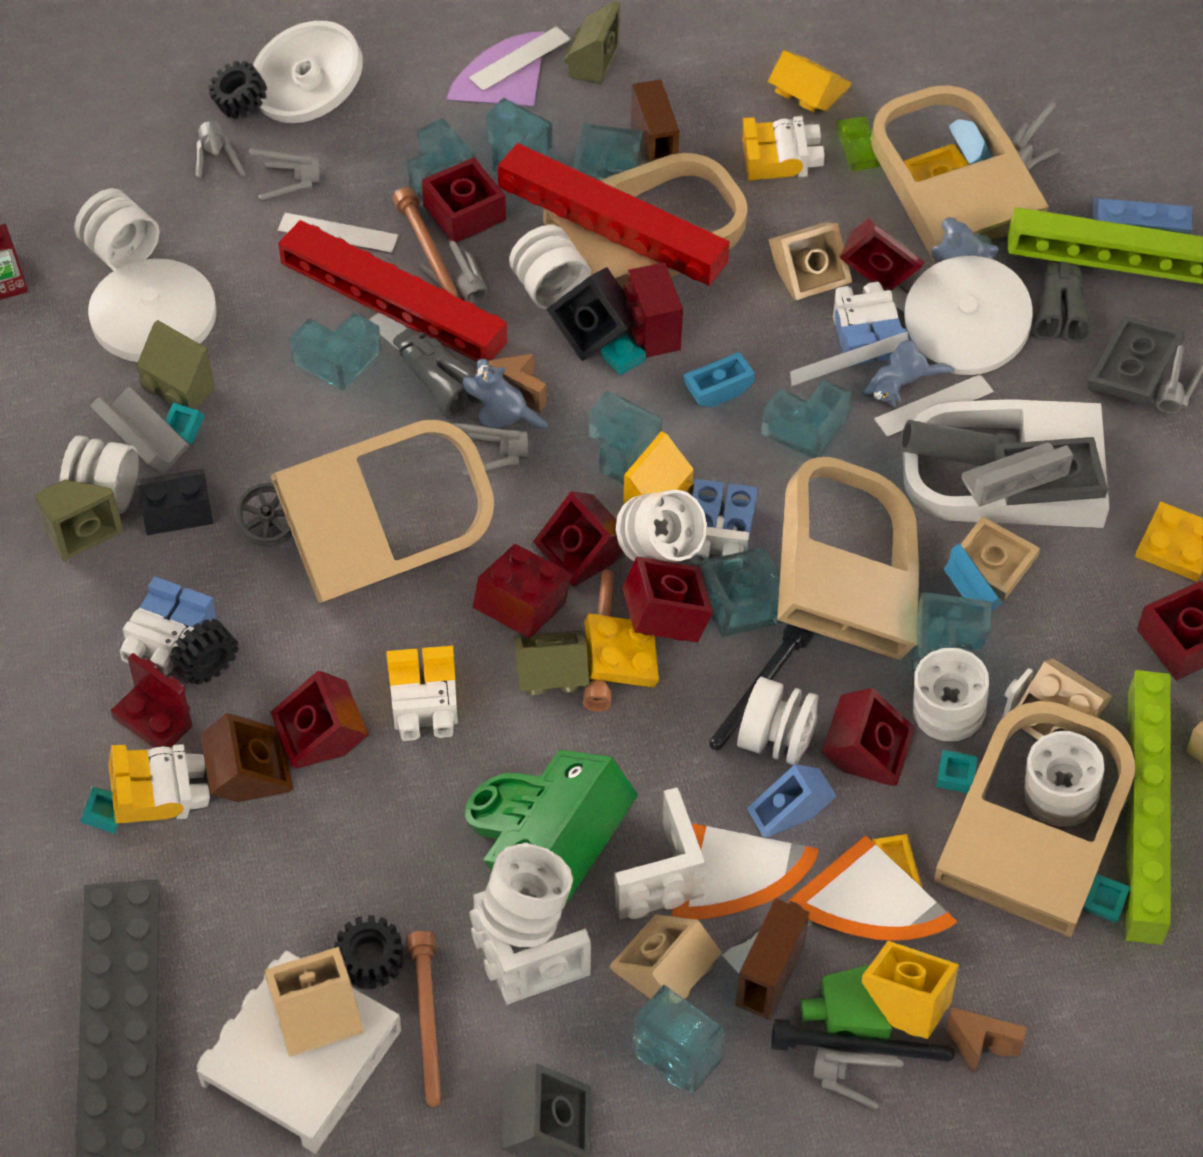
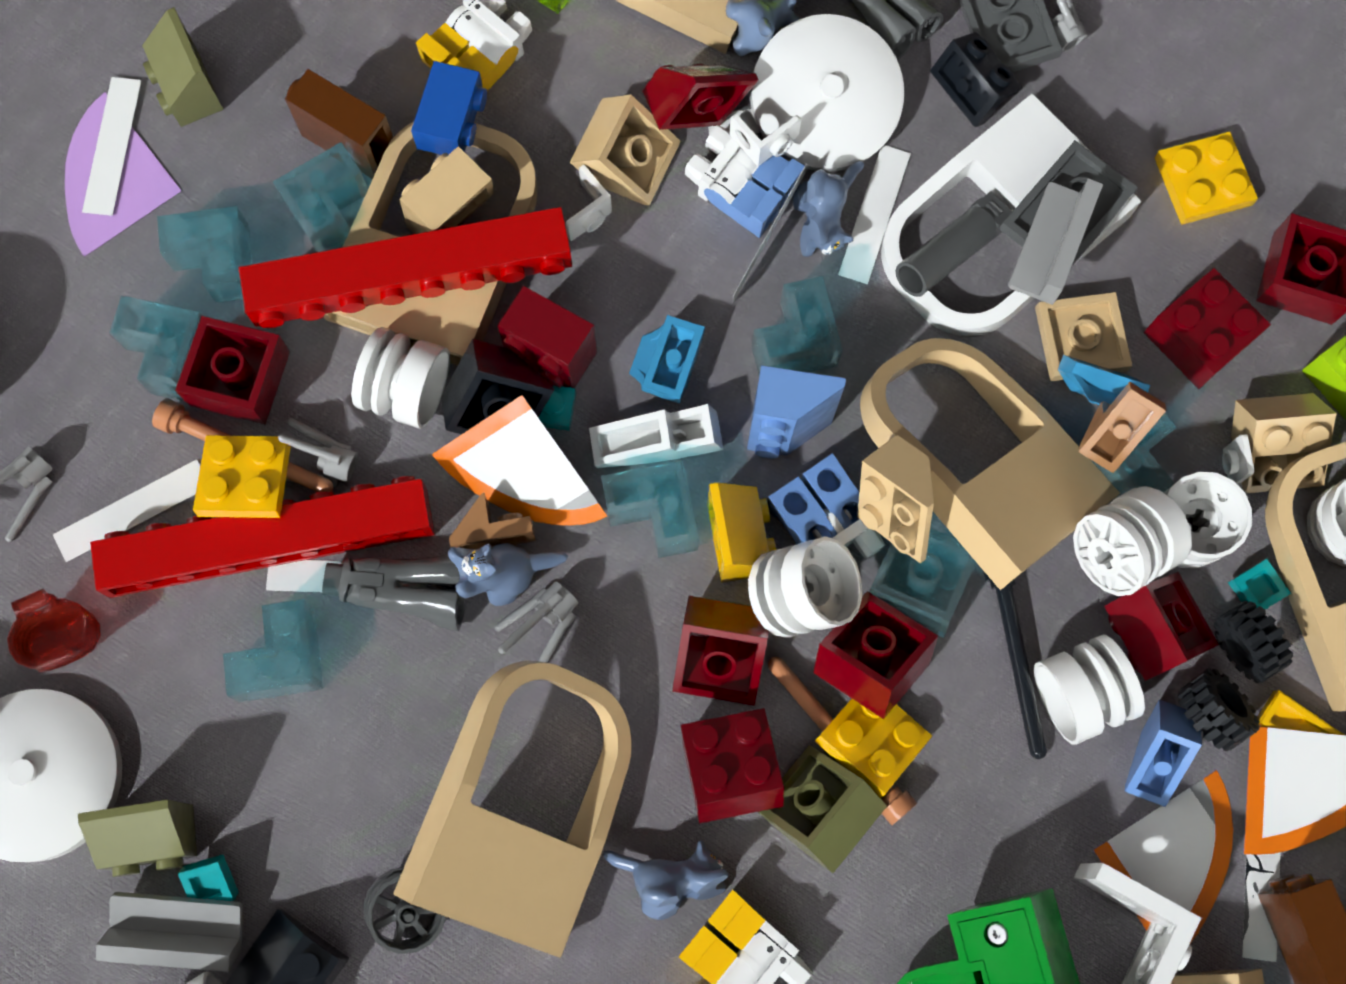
camera: 45 degrees left, 20 degrees up
(232, 252) = (52, 634): none -> clear red piece
(411, 248) = (242, 477): none -> yellow plate
(424, 622) = (666, 883): none -> sand blue animal
(568, 361) = (520, 468): none -> white sticker
(676, 193) = (445, 194): none -> tan slope
(681, 419) = (656, 437): none -> white slope
(720, 157) = (448, 109): none -> blue brick
(752, 275) = (594, 214): none -> white bracket
(753, 440) = (791, 409): none -> medium blue slope
(765, 516) = (898, 496): none -> tan slope
(849, 798) = (1218, 709): none -> black tyre
(888, 657) = (1132, 540): none -> white wheel
(899, 305) = (774, 144): none -> white bracket
(914, 784) = (1253, 641): none -> black tyre
(943, 586) = (1120, 426): none -> medium nougat slope
(1078, 372) = (974, 77): none -> black bracket
(1079, 611) = (1206, 328): none -> dark red brick

